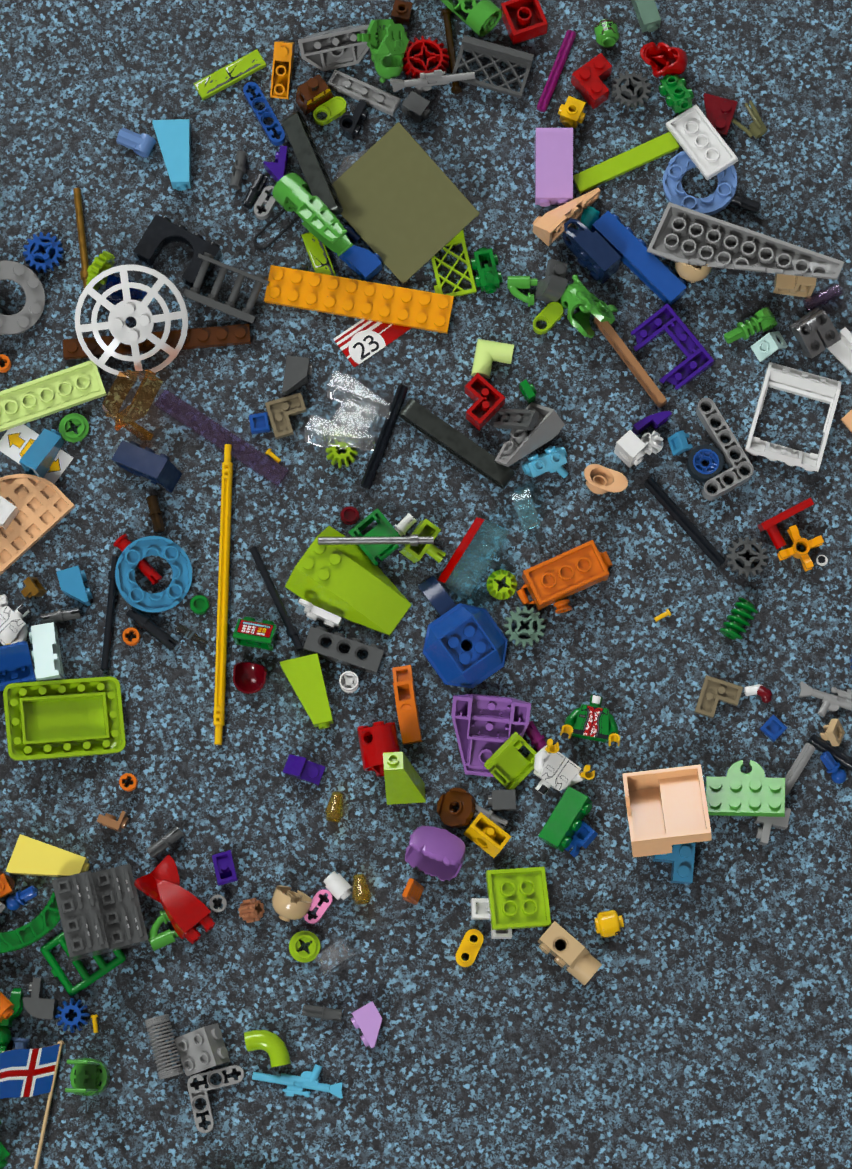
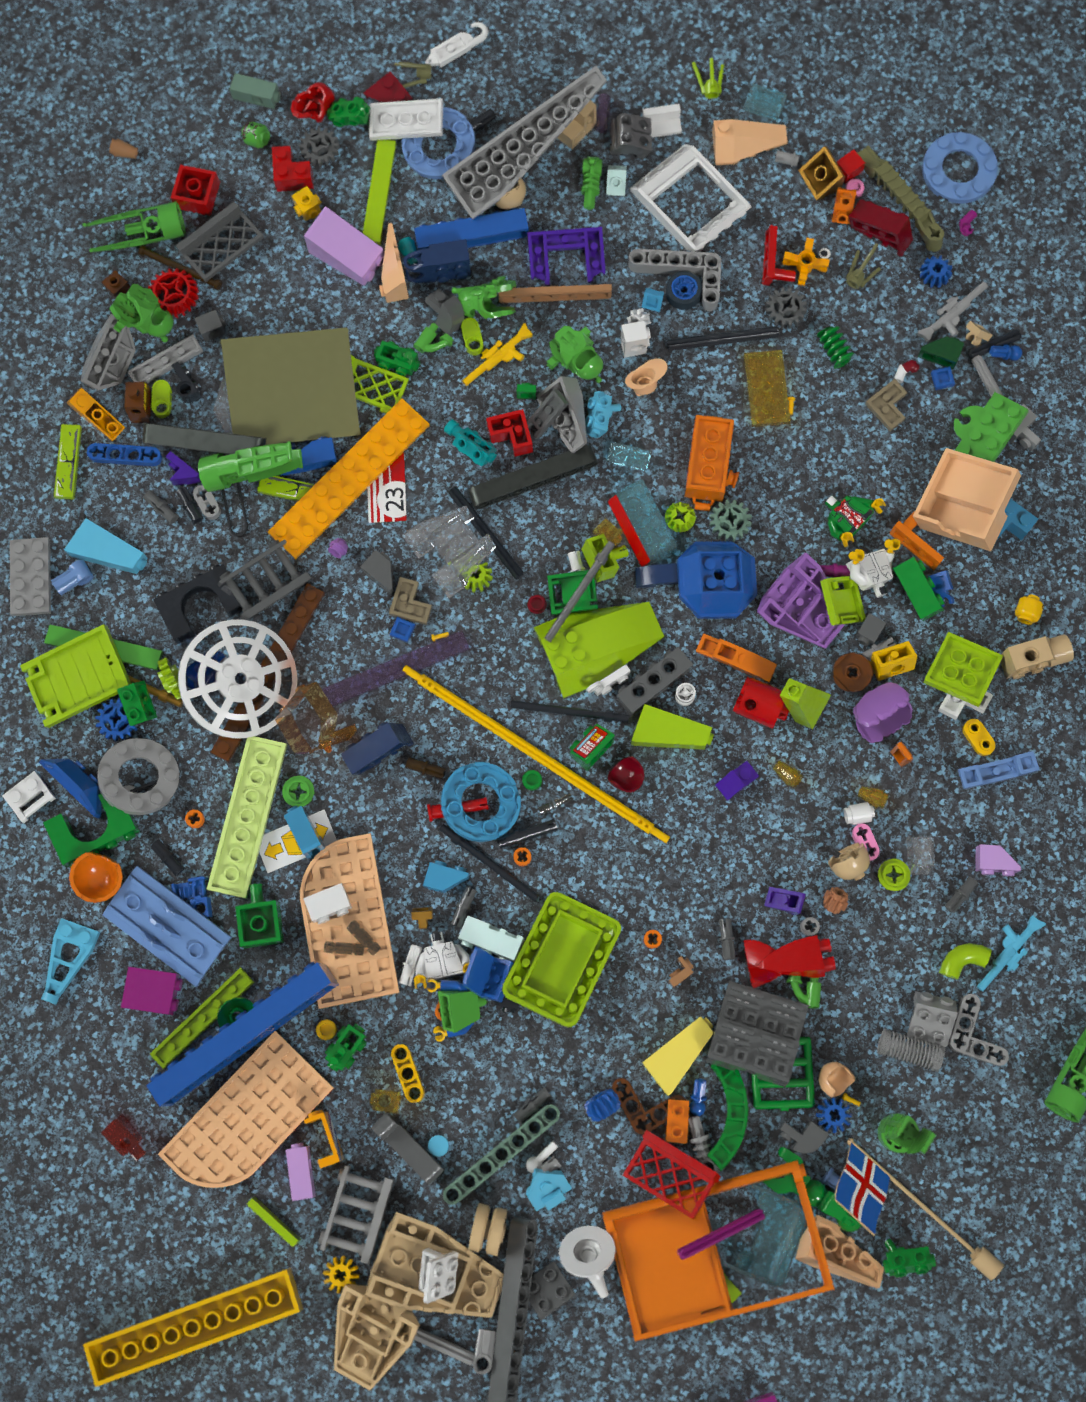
camera: 55 degrees left, 0 degrees up
(58, 198) = (76, 675): none -> lime door
(64, 258) = (137, 703): none -> green bracket
(95, 202) = (128, 652): none -> bright green tile
(101, 998) = (835, 1078): none -> light nougat hair
(117, 110) = (30, 577): none -> light grey plate
(294, 328) = (338, 547): none -> medium lavender plate
(428, 80) = (195, 298): light grey piece -> none
(447, 535) = (610, 531): none -> clear yellow bracket
(448, 980) = (998, 770): none -> medium blue slope
(451, 376) = (473, 448): none -> teal brick
(490, 351) = (469, 402): yellowish green brick -> none
(543, 347) = (495, 355): none -> yellow piece
(556, 70) = (259, 195): magenta axle -> none
(586, 410) = (575, 353): none -> bright green helmet
(608, 777) = (914, 543): none -> orange piece
(655, 420) = (621, 307): dark purple slope -> none
(663, 585) = (766, 388): none -> clear yellow plate
(796, 713) = (942, 351): none -> dark green slope
(798, 140) = (456, 46): none -> white plate
(815, 599) = (856, 278): none -> olive plant

